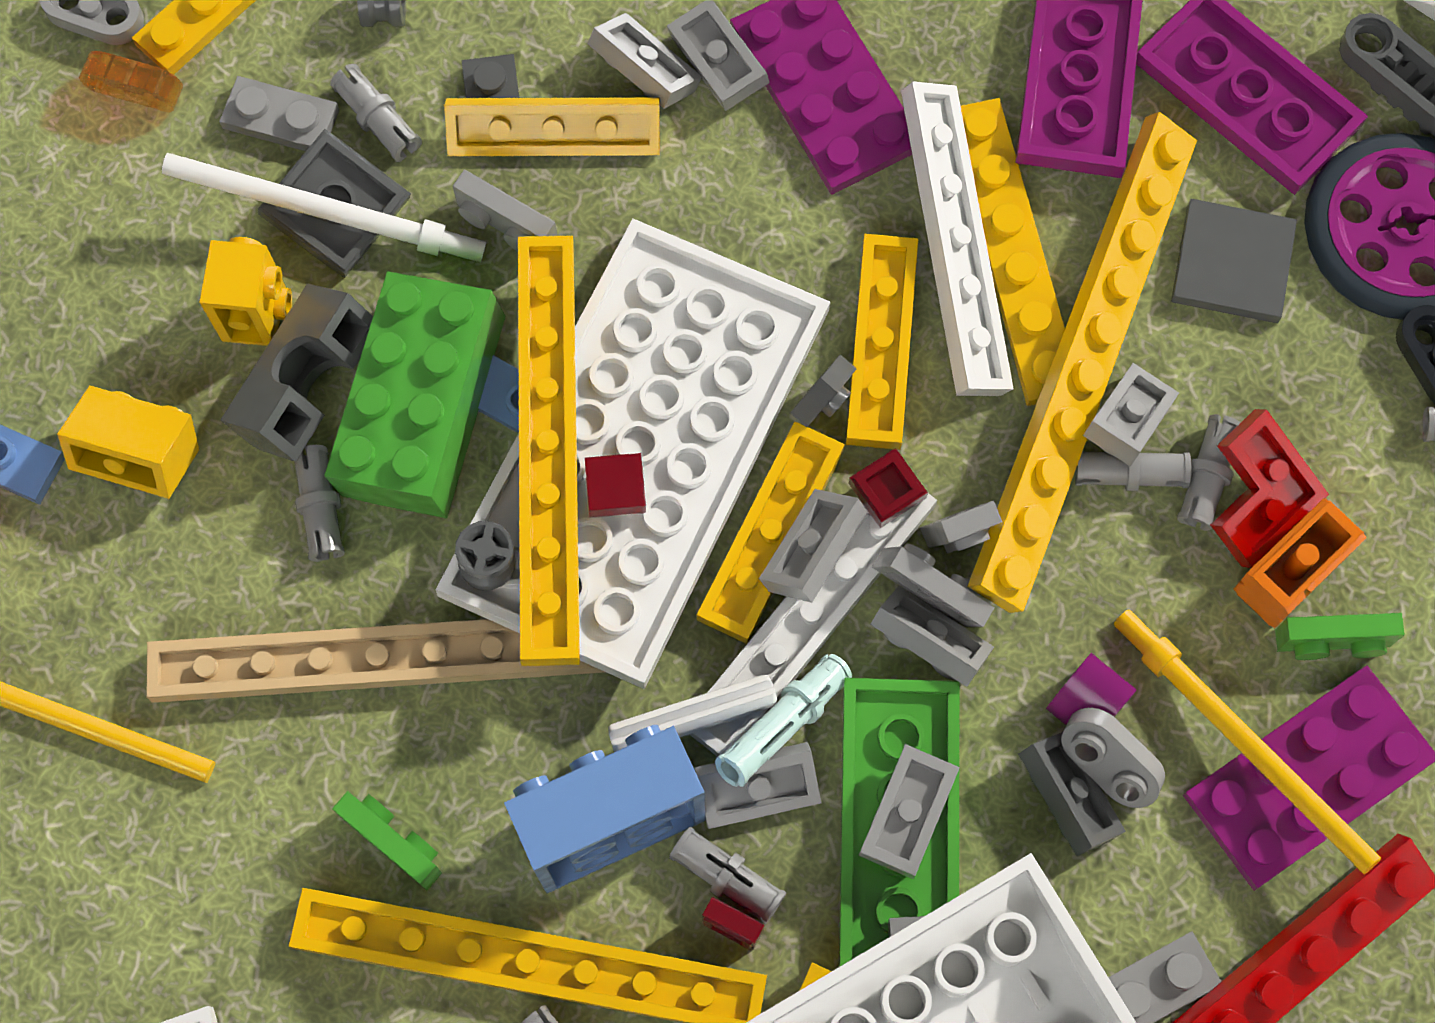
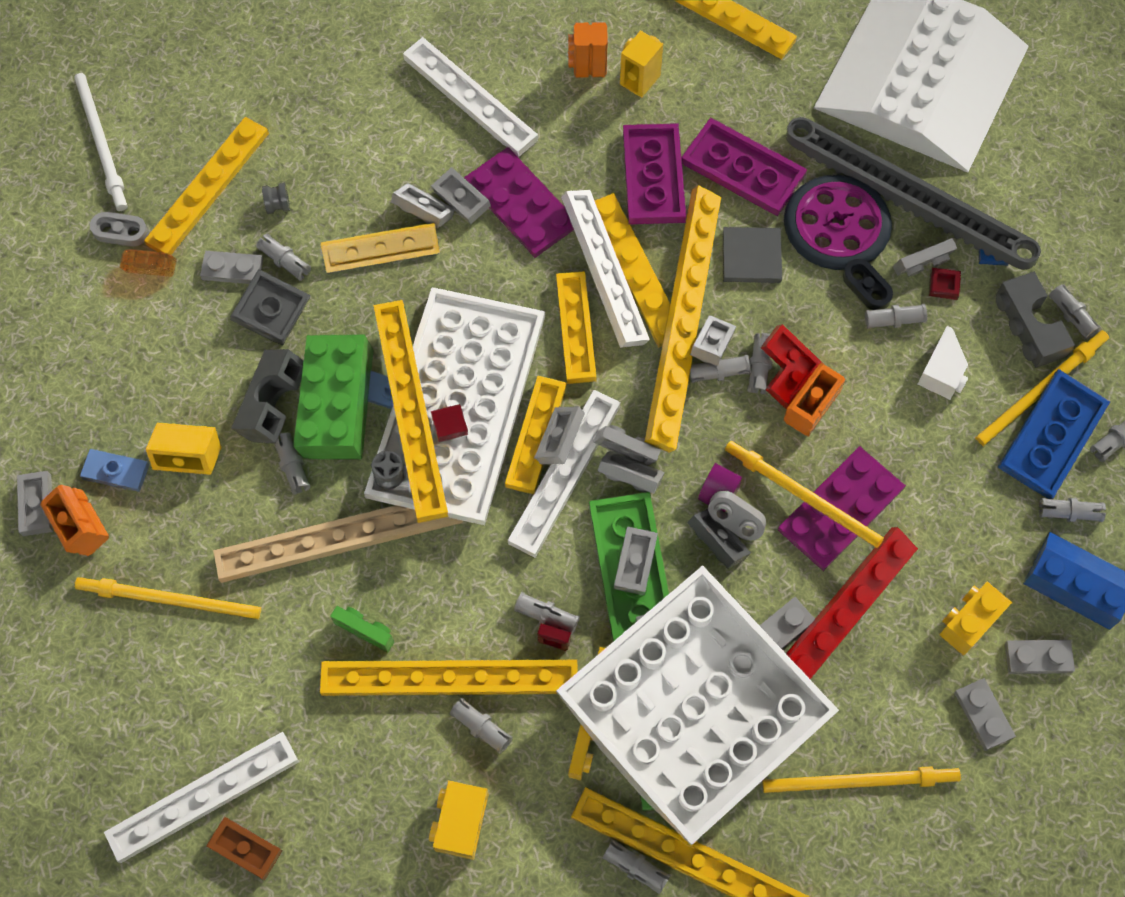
camera: 10 degrees left, 5 degrees down
(244, 291) = (232, 359): yellow brick -> none
(429, 236) = (325, 315): white bar -> none
(487, 205) = (353, 294): light grey plate -> none
(490, 77) = (341, 228): dark grey plate -> none
(607, 807) = (477, 585): medium blue slope -> none
(701, 711) = (512, 533): white axle -> none
(778, 786) = (554, 564): light grey plate -> none
(800, 704) = (567, 519): light aqua pin -> none
(826, 393) = (551, 358): dark grey plate -> none
(888, 487) = (593, 399): dark red tile -> none
(962, 528) = (635, 412): light grey plate -> none
(1362, 633) = (830, 435): bright green plate -> none

